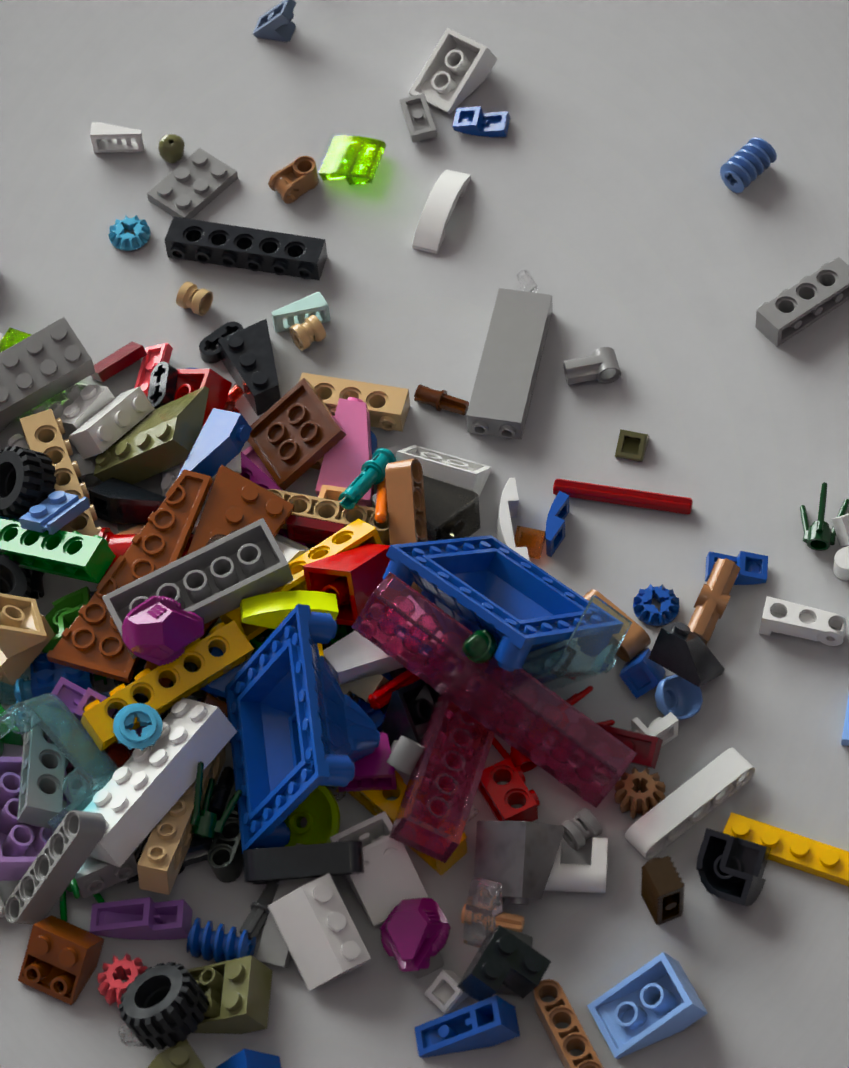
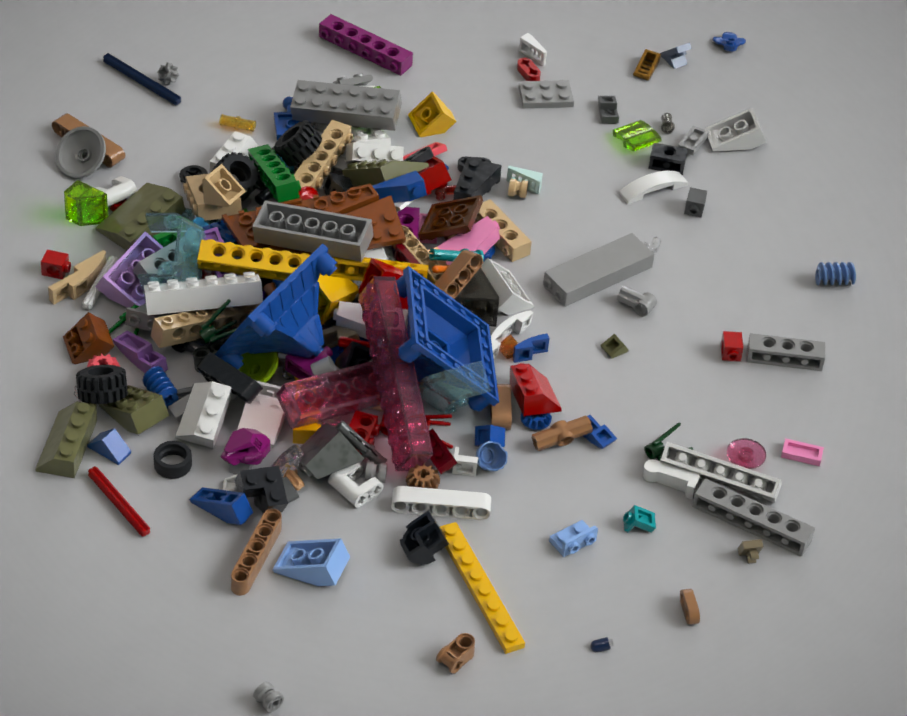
camera: 35 degrees right, 10 degrees down
(54, 512) = (296, 162): medium blue plate -> none
(55, 867) = (122, 293): light grey beam -> none
(105, 318) = (431, 116): none -> yellow slope
(118, 361) = (414, 137): dark red tile -> none
(128, 241) = (484, 94): medium azure gear -> none
(138, 169) = (528, 69): none -> red beam
(146, 717) = (215, 257): medium azure gear -> none
(160, 630) = (271, 230): magenta helmet -> none
(171, 148) = (554, 71): olive piece -> none
(196, 299) = (483, 137): tan wheel -> none
(246, 248) = (535, 135): black brick -> none
(254, 45) = (650, 56): none -> pearl gold slope
(272, 608) = (349, 274): neon yellow slope -> none
(278, 148) = (608, 109): none -> dark grey slope
(296, 179) = (598, 124): medium nougat piece -> none
(341, 1001) = (172, 448): none -> black tyre
(371, 121) = (667, 124): none -> clear smoke pin
(420, 162) = (667, 158): none -> black brick
(440, 400) = (544, 259): reddish brown axle -> none
(475, 122) = (721, 163): blue slope -> none
(480, 646) = (398, 337): dark green piece -> none
(511, 193) = (695, 202): none -> dark grey brick
(545, 811) = (368, 450): none -> dark grey pin
(623, 496) = (580, 363): red axle -> none
(625, 578) = (532, 391): none -> red slope
(662, 889) = (377, 520): dark brown brick -> none
(685, 654) = (515, 440): black slope -> none
(749, 341) = (731, 346): none -> red brick
(802, 622) = (595, 475): white leg -> none

